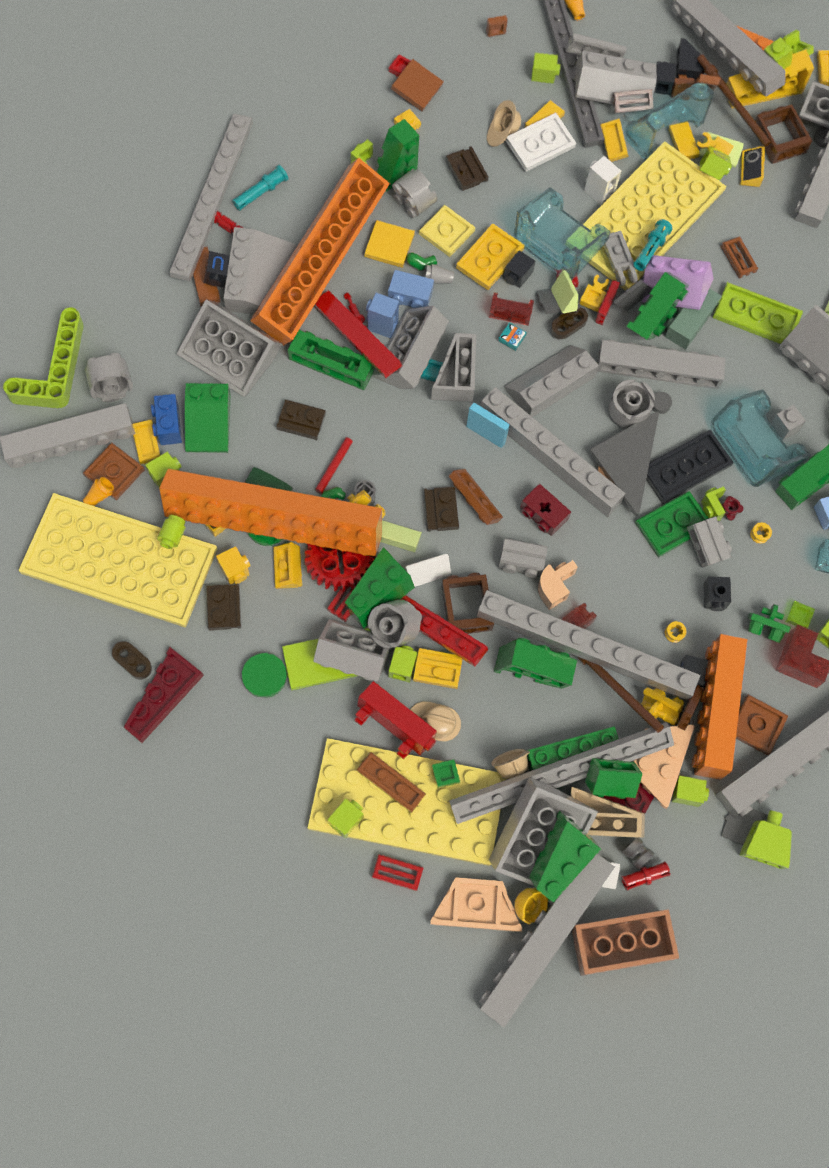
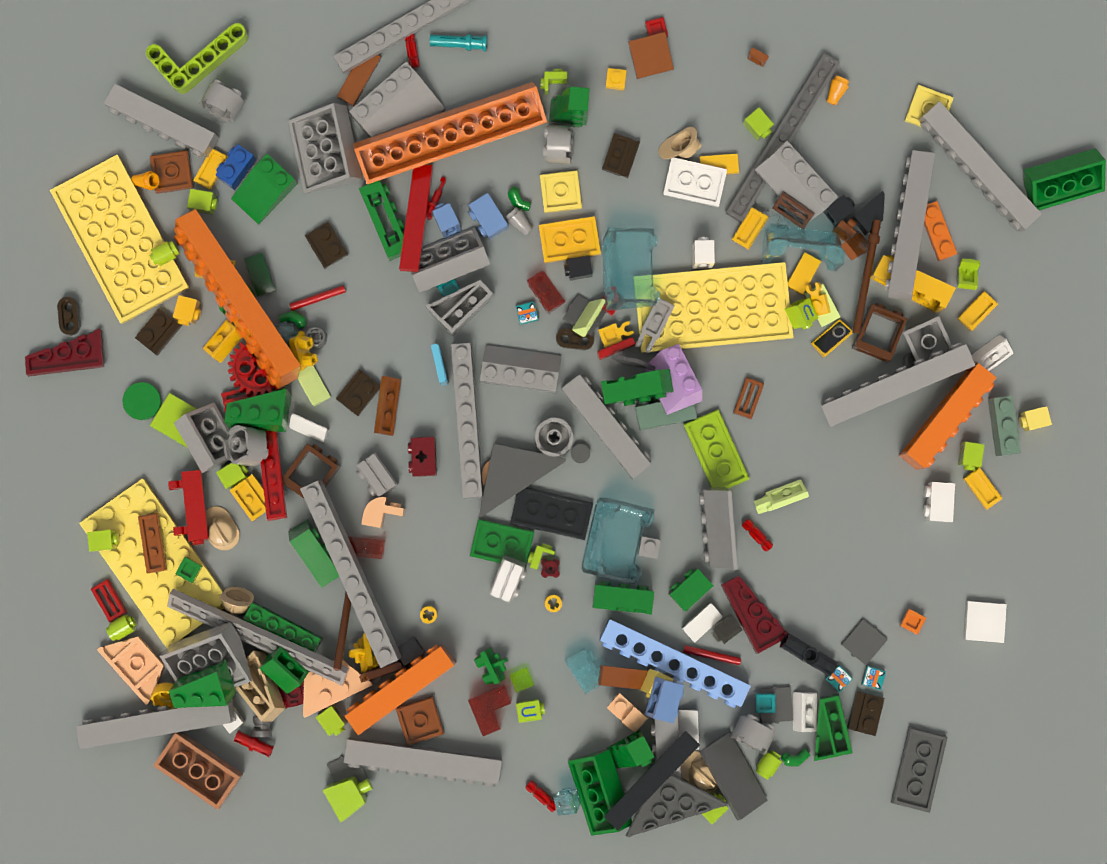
camera: 45 degrees right, 15 degrees up
(216, 269) = (366, 82): black brick -> none
(389, 244) = (510, 166): yellow tile -> none
(433, 883) = (121, 627): none -> lime brick
(580, 43) = (808, 143): light grey tile -> none
(643, 259) = (693, 334): teal pin -> none
(717, 593) = (479, 616): black brick -> none
(780, 52) = (925, 275): lime brick -> none

